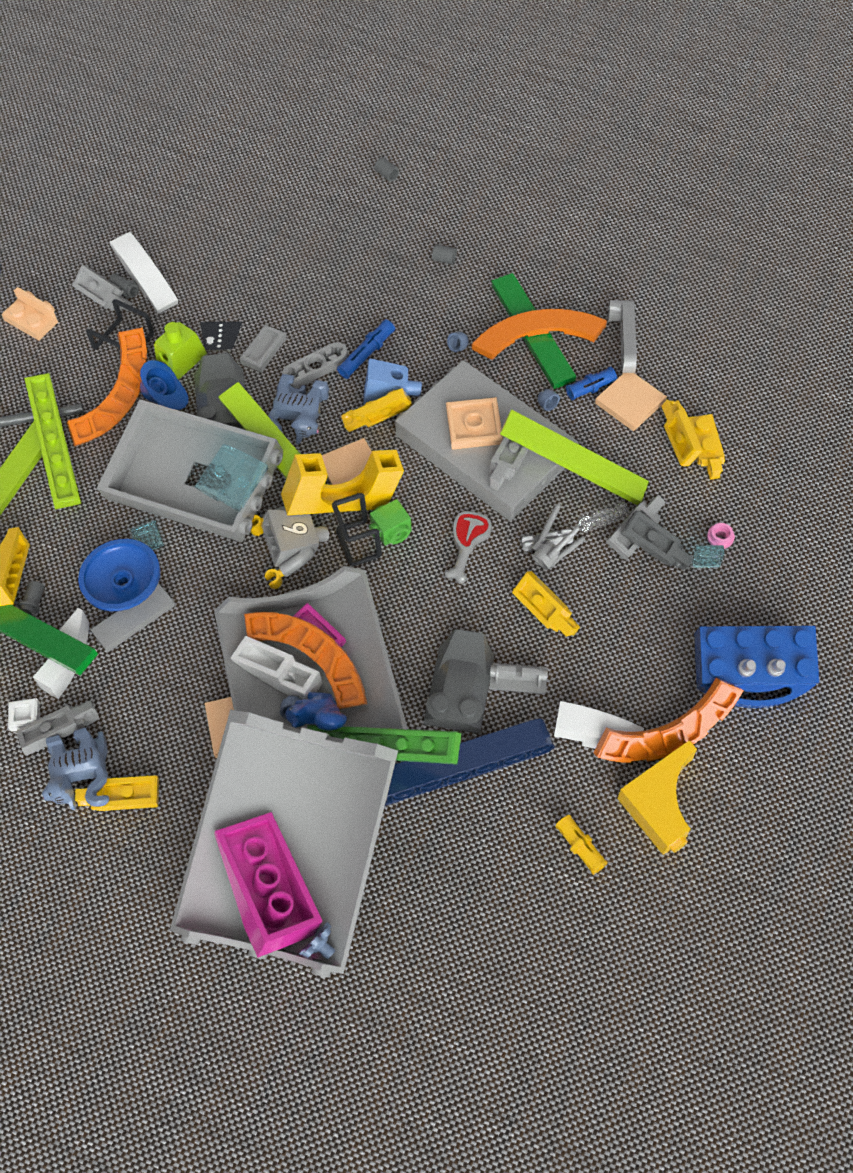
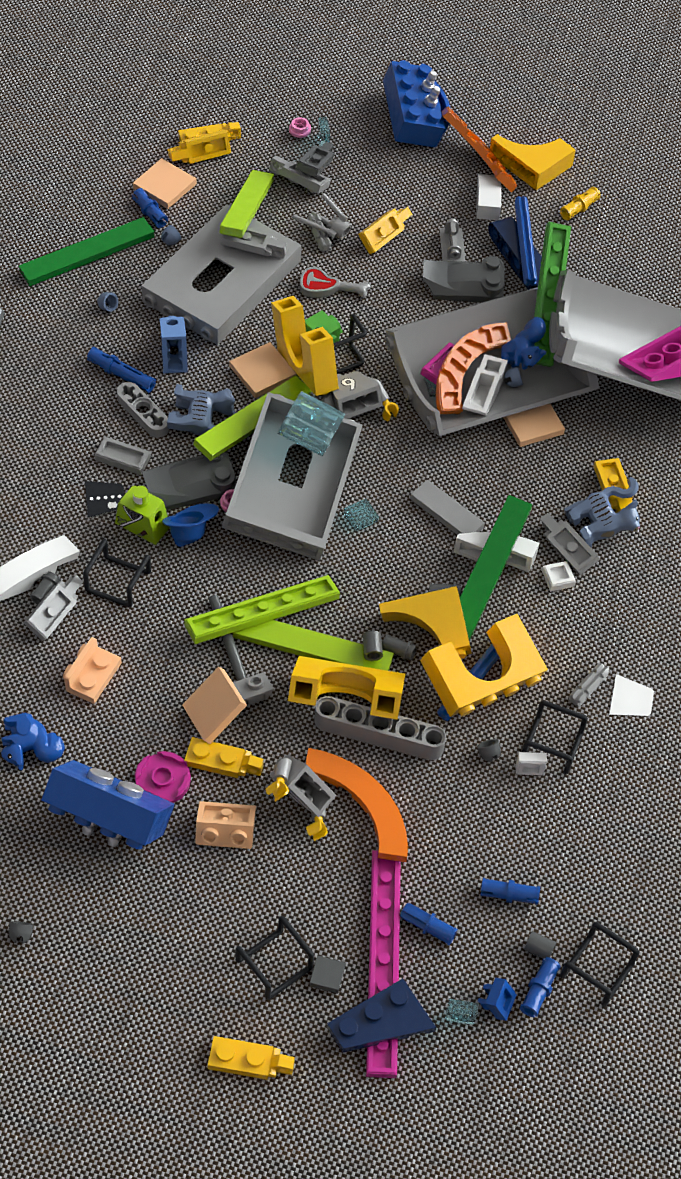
camera: 105 degrees left, 5 degrees down
(112, 566) = (417, 504): blue dish -> none
(121, 397) = (199, 557): orange tile -> none
(377, 410) = (202, 348): yellow hinge -> none
(474, 423) = (217, 270): light nougat tile -> none
(515, 749) = (525, 241): none -> blue axle
(536, 323) = (88, 246): orange tile -> none
(603, 517) = (291, 198): clear axle -> none
(624, 312) = (66, 188): light grey beam -> none

